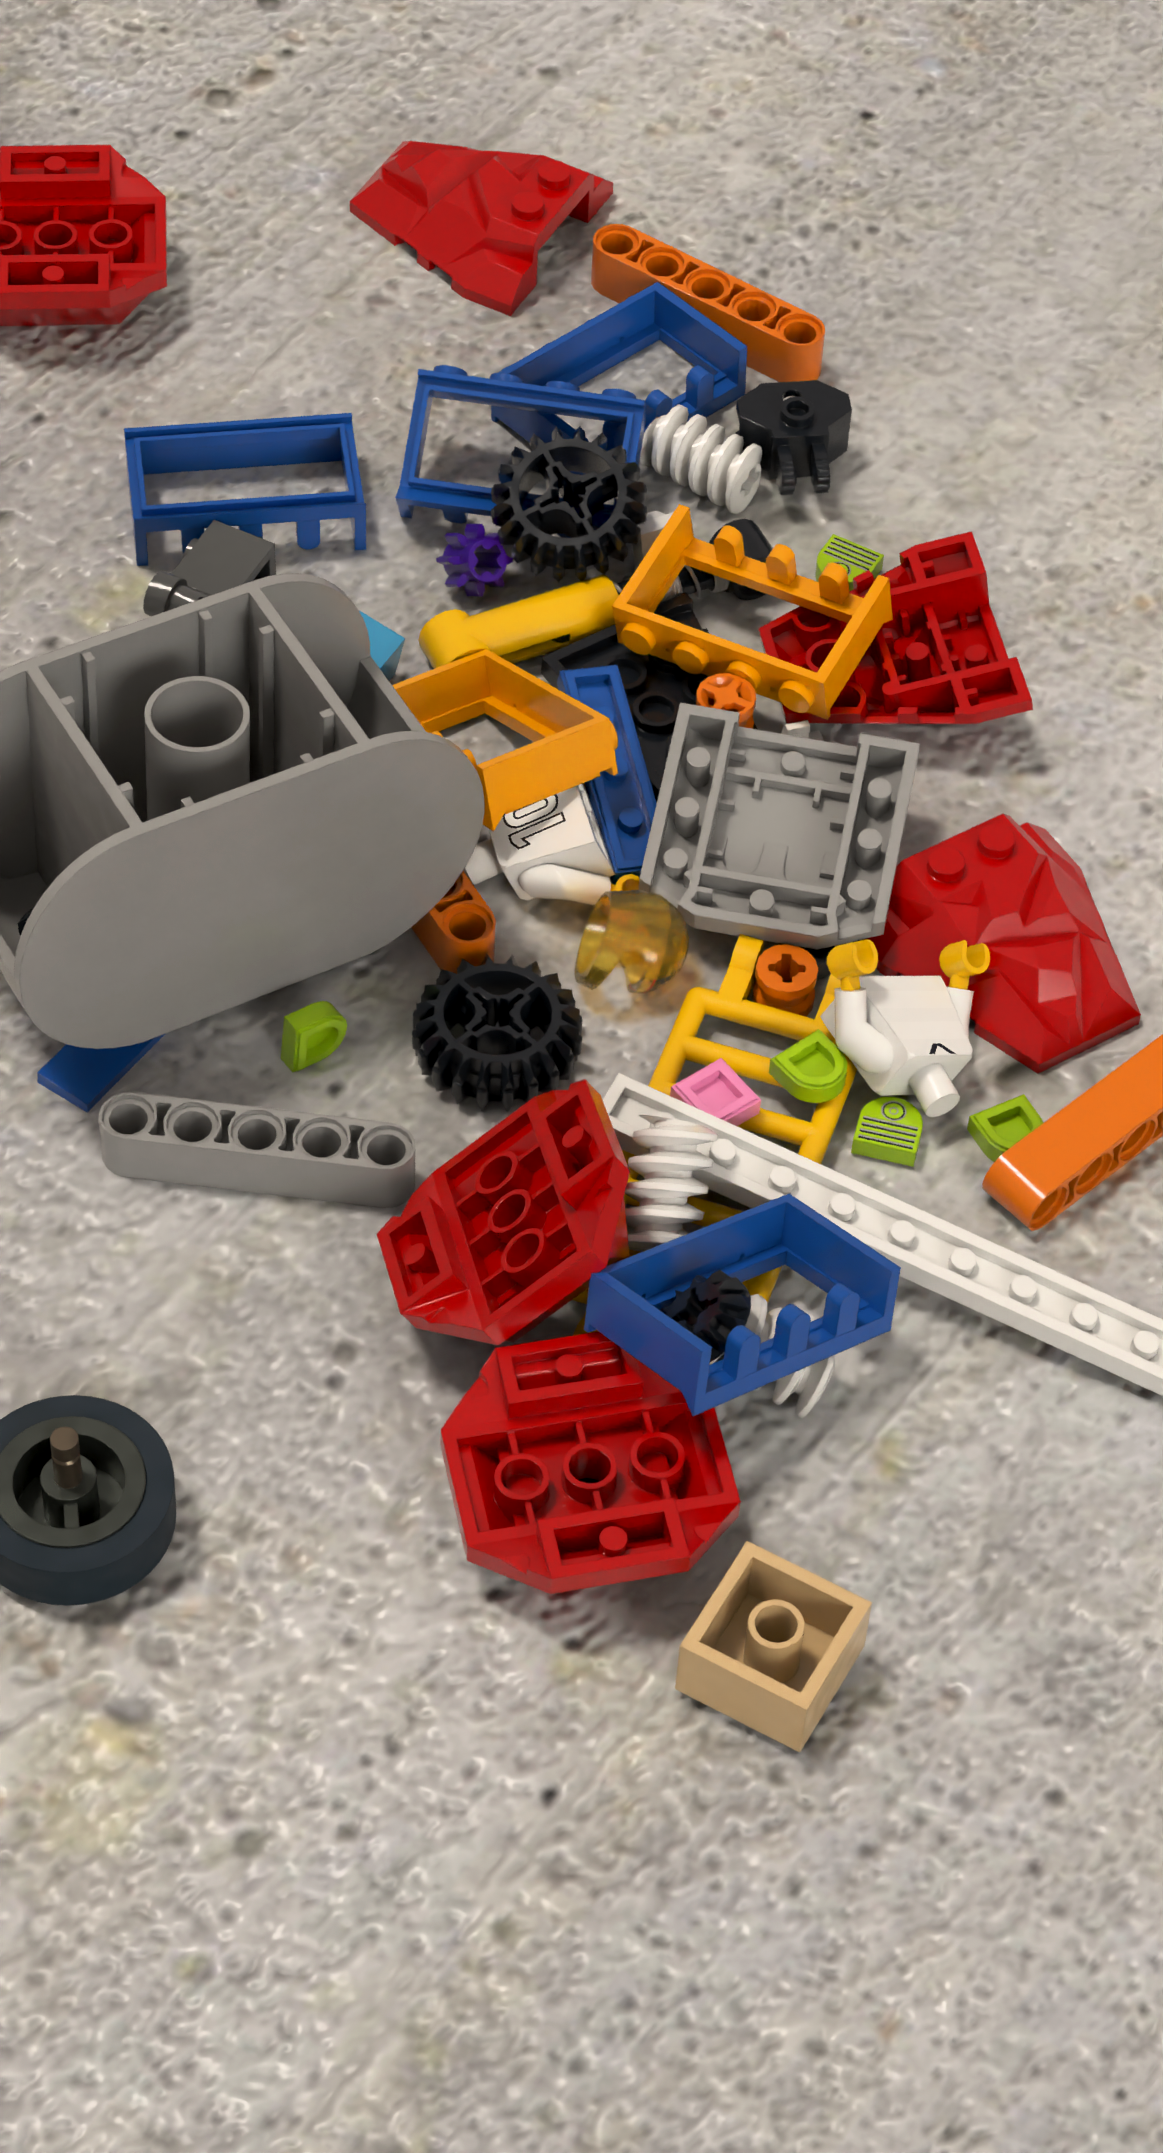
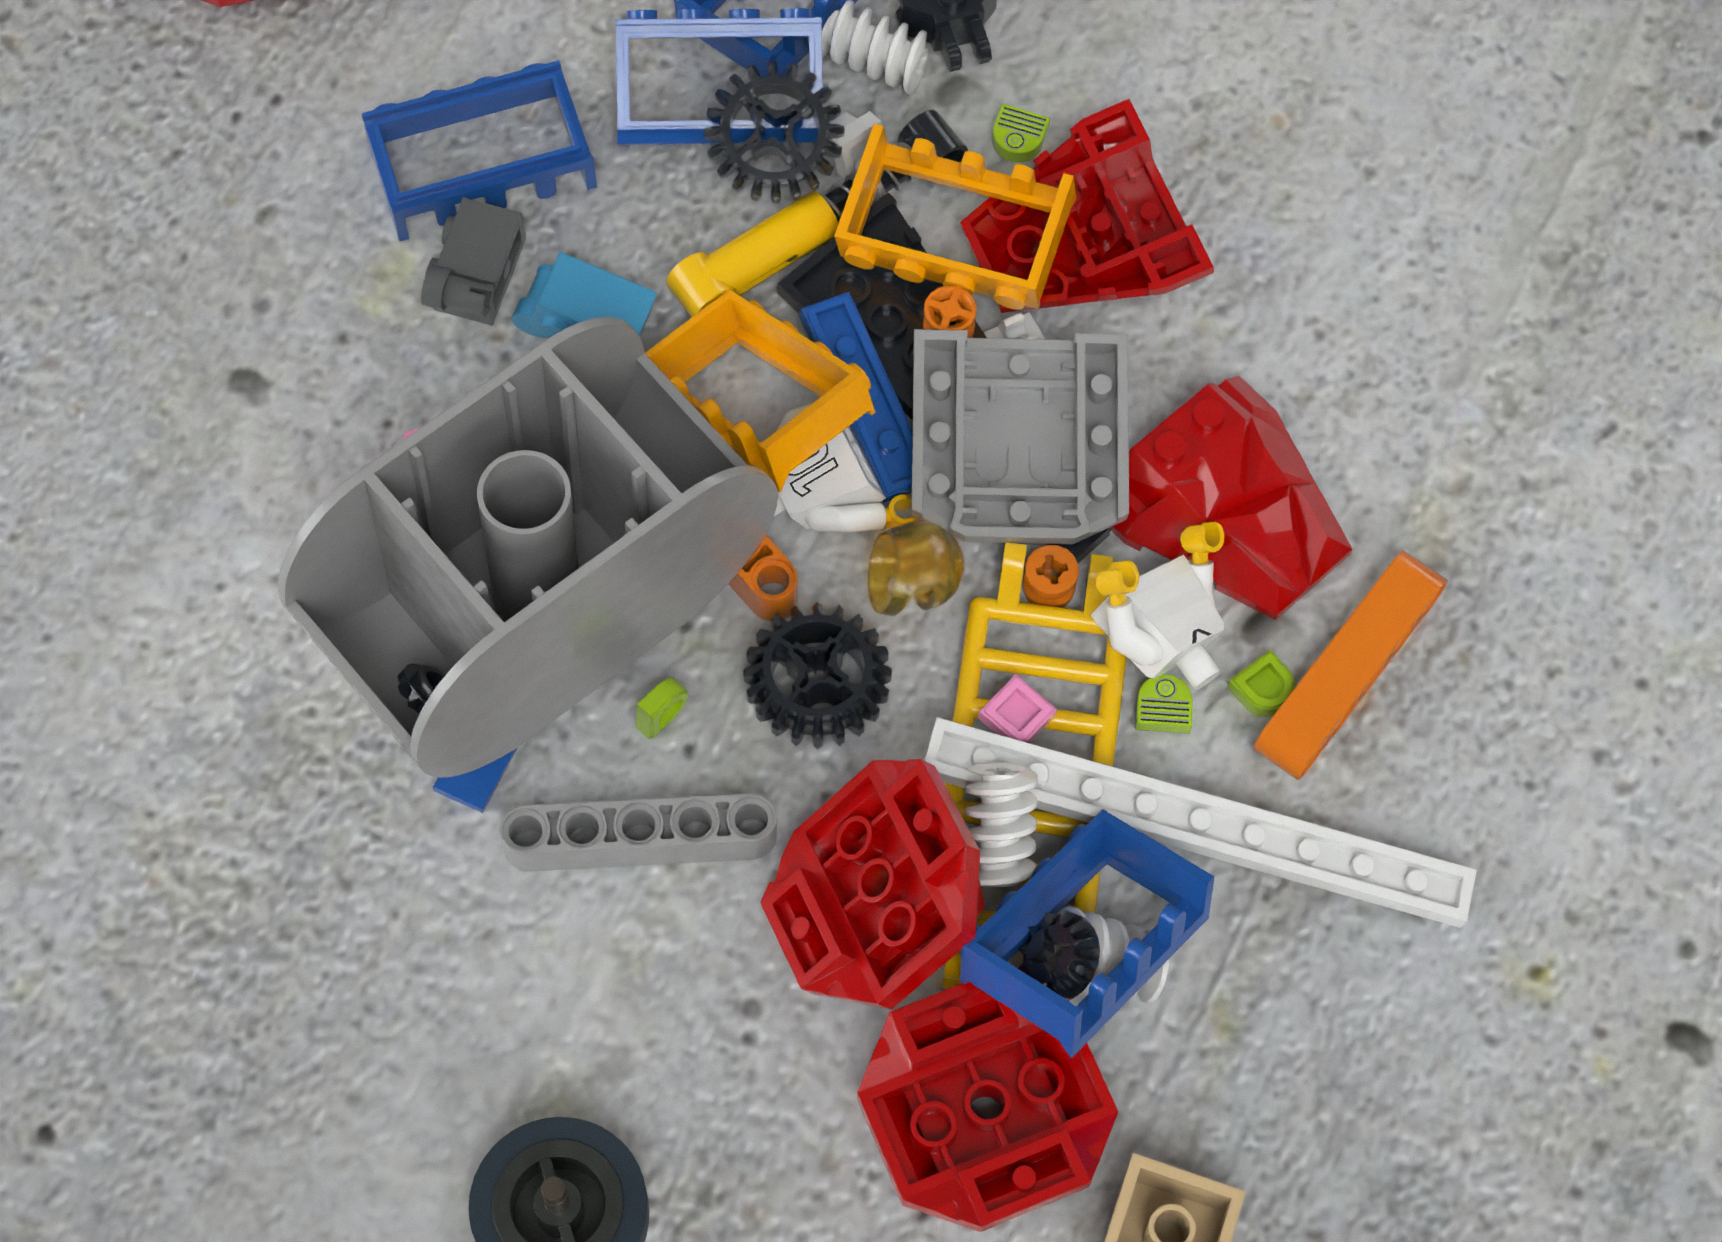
camera: 10 degrees left, 15 degrees up
(460, 560) = (697, 191): dark purple gear -> none
(811, 1069) = (1092, 667): lime tile -> none

